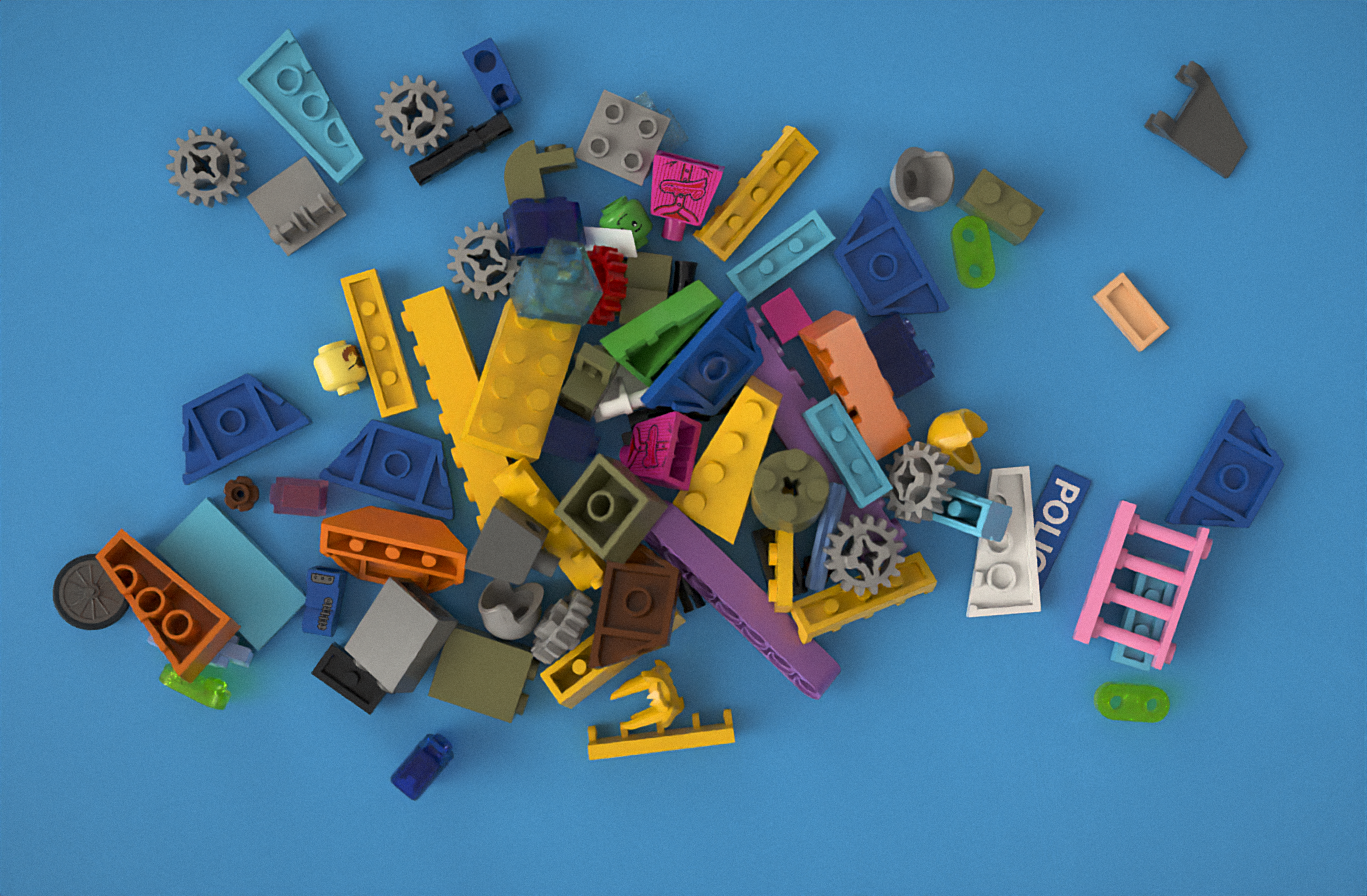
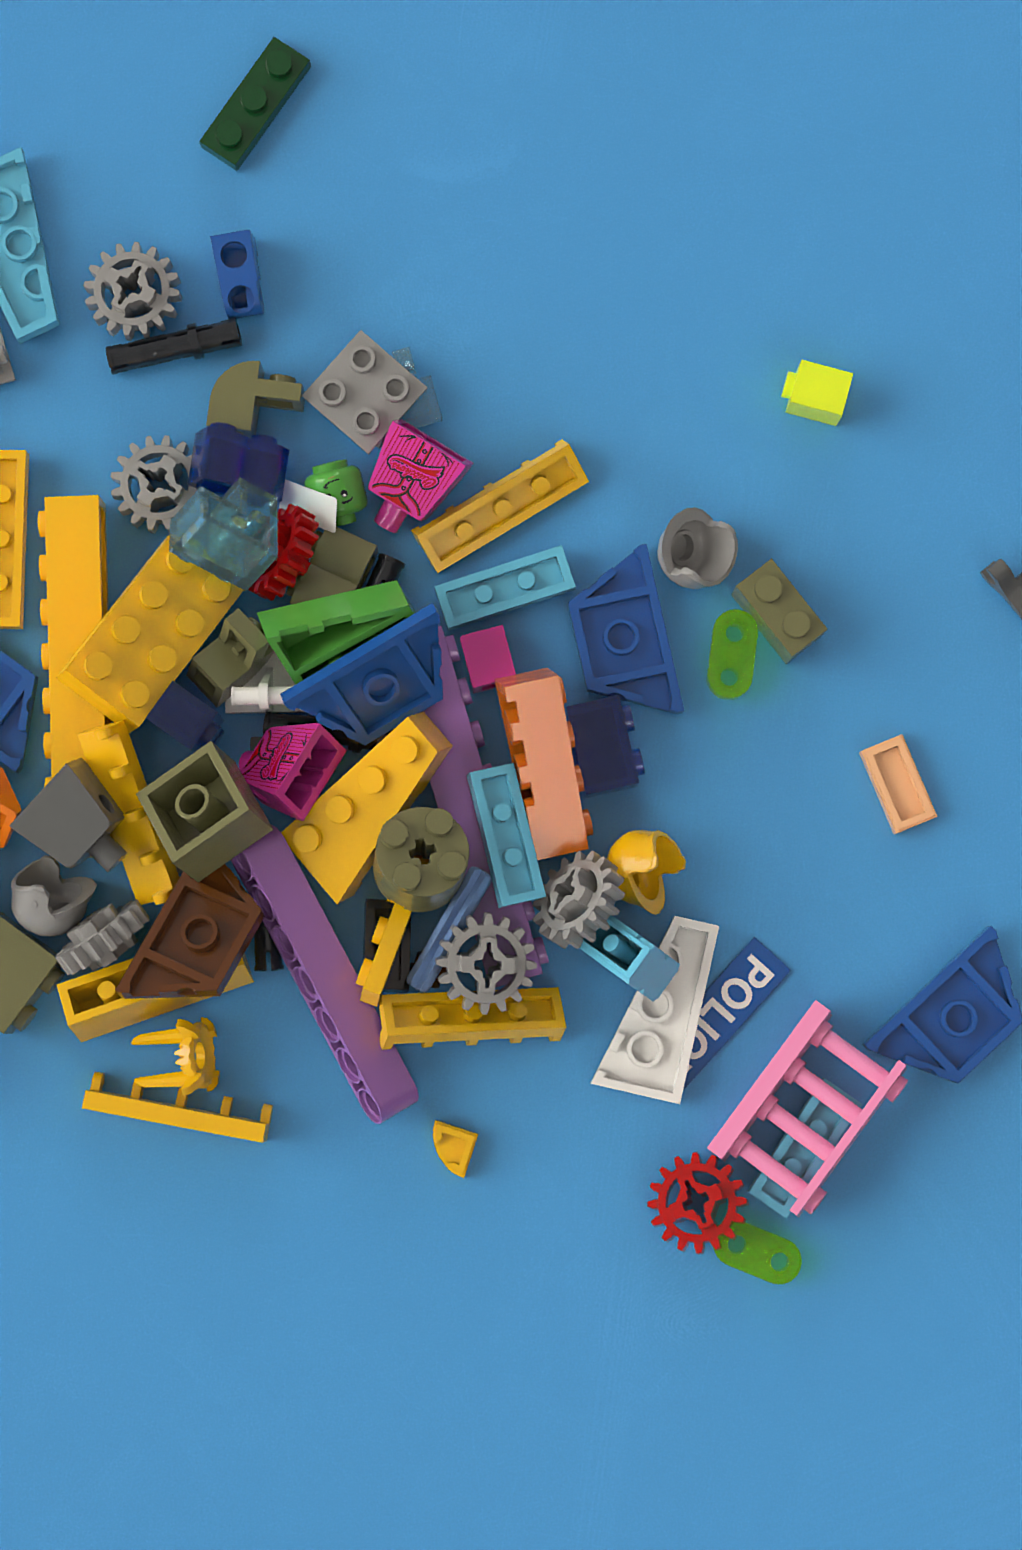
camera: 15 degrees right, 5 degrees down
(878, 696) = (454, 1146): none -> yellow tile
(975, 23) = (817, 392): none -> neon yellow brick
(1065, 693) = (678, 1212): none -> red gear

